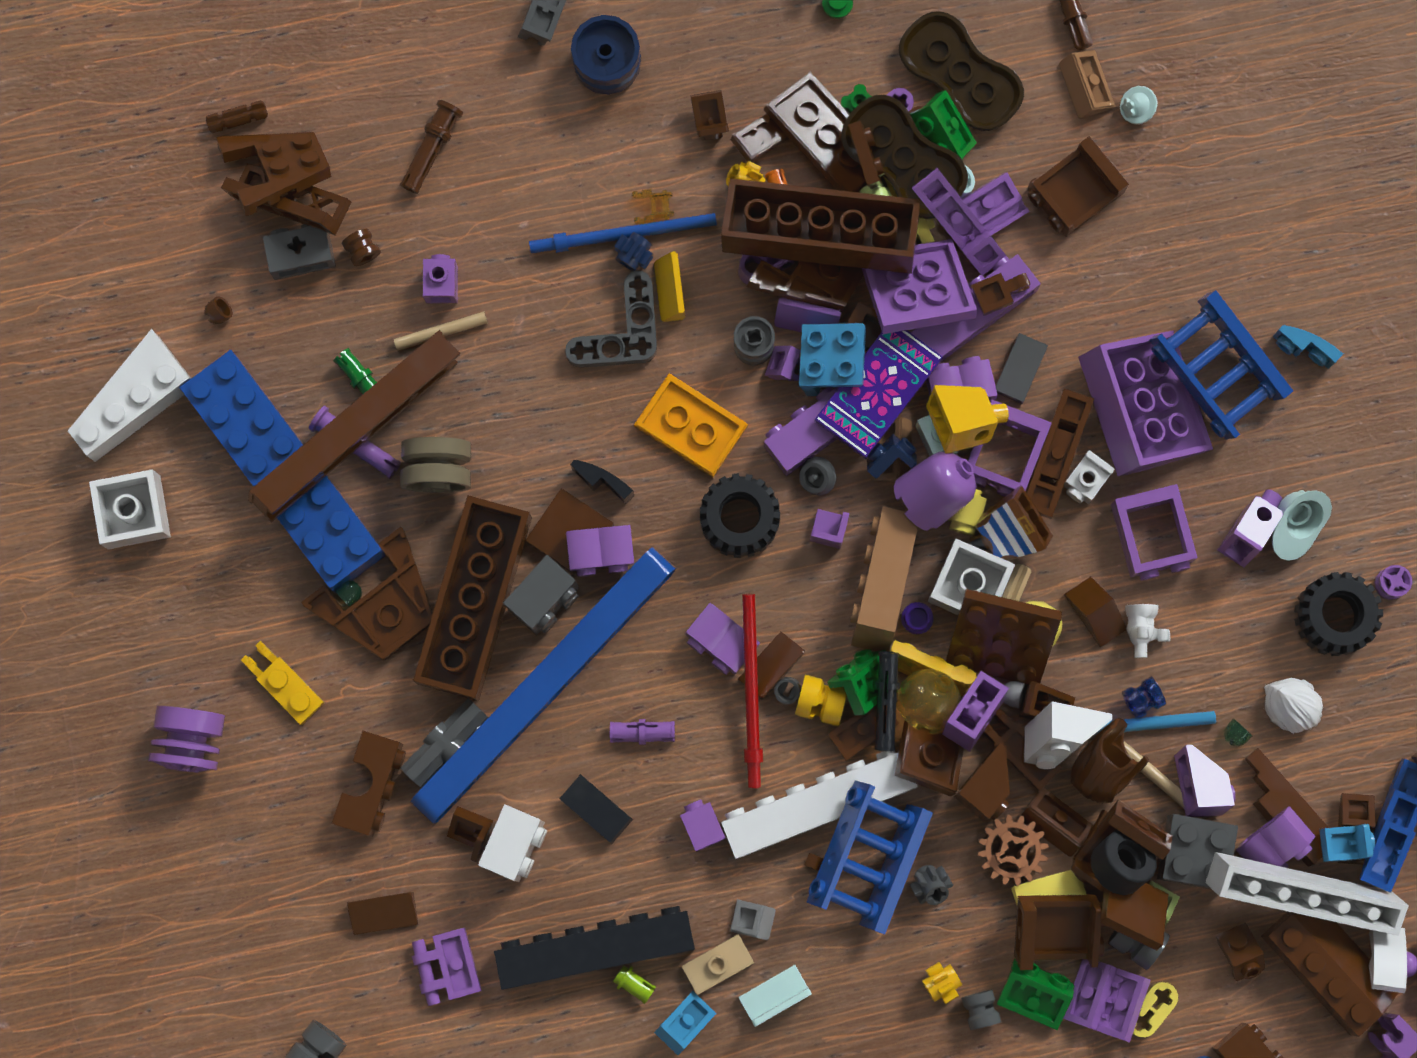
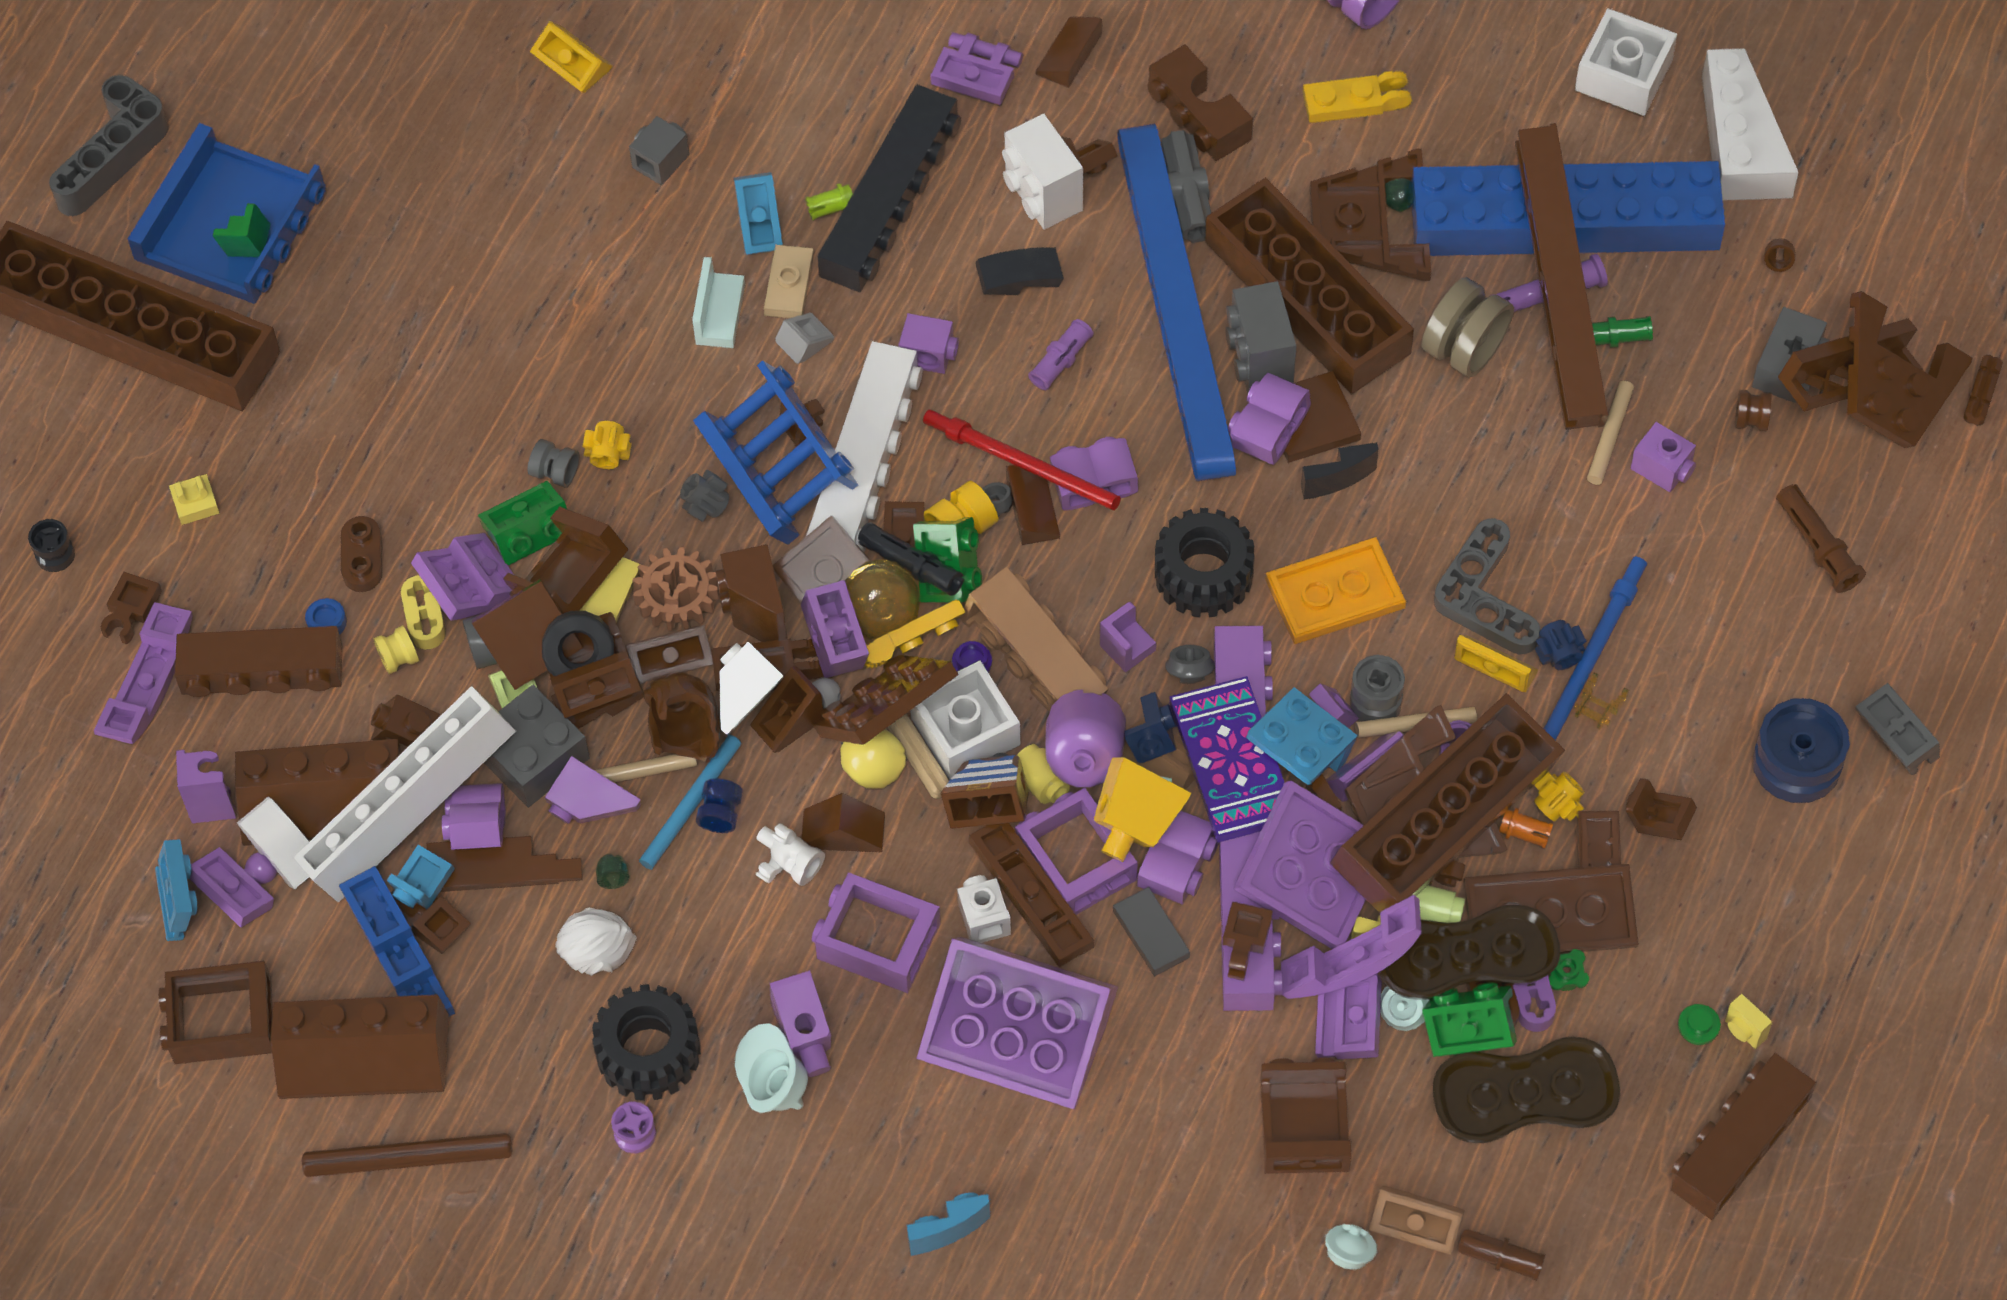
camera: 125 degrees right, 20 degrees down
(751, 305) = (1406, 723): none -> tan bar
(871, 166) = (1495, 905): reddish brown plate -> none
(1196, 1001) = (396, 649): none -> light yellow wheel
(1234, 336) = (1018, 1145): blue fence -> none

